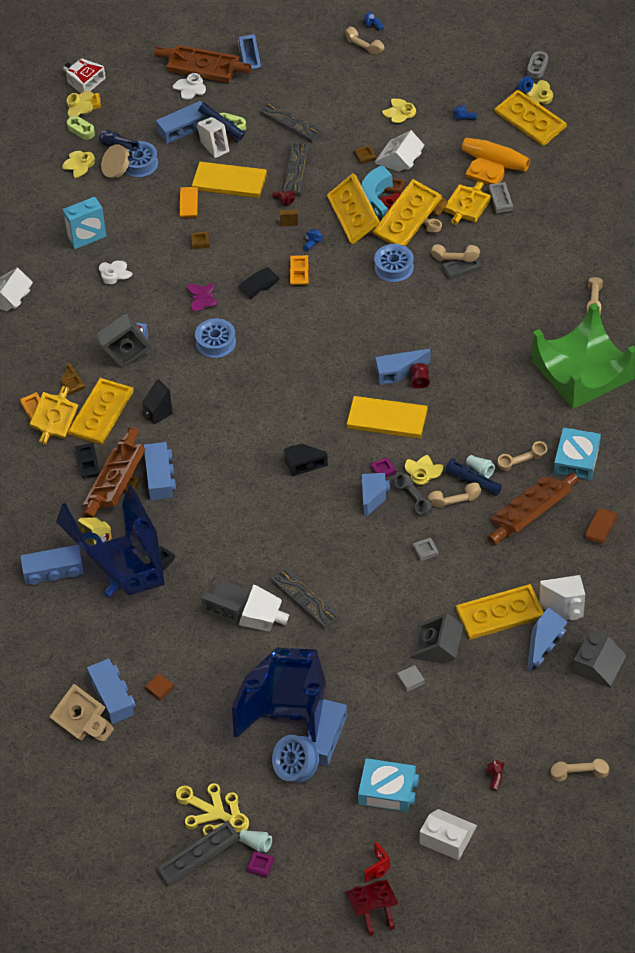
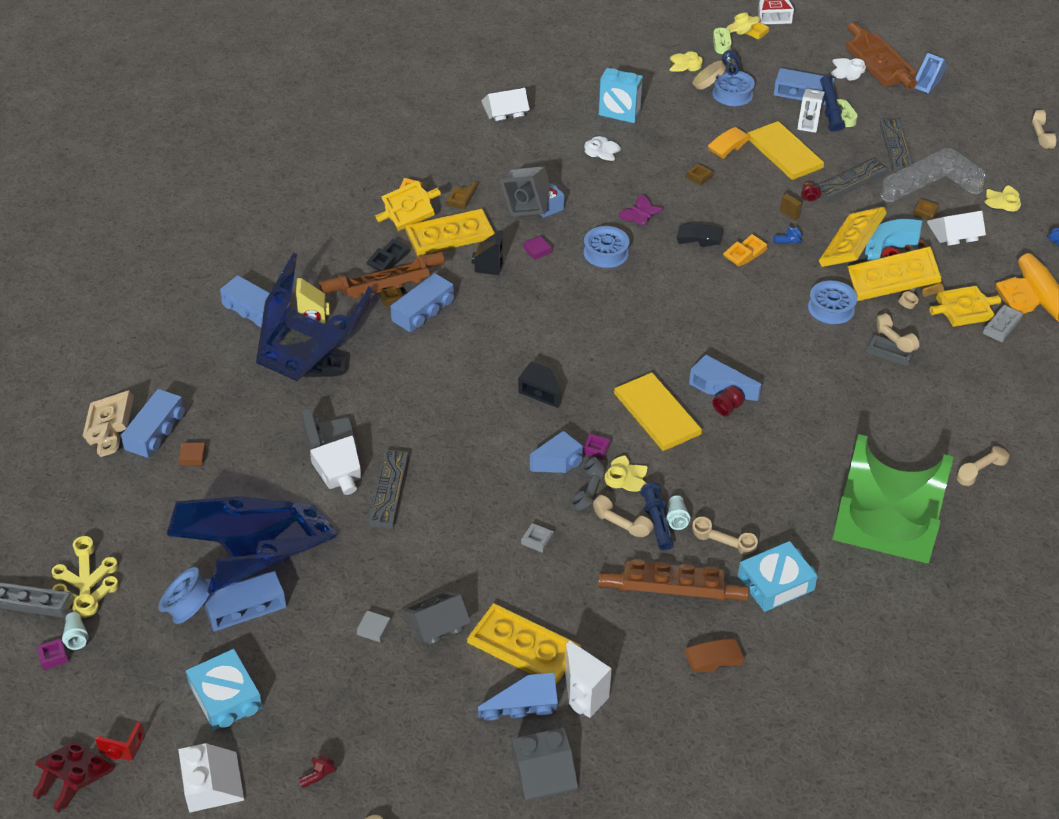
camera: 45 degrees right, 5 degrees down
(171, 374) = (537, 247): none -> magenta tile
(339, 112) = (930, 169): none -> clear beam

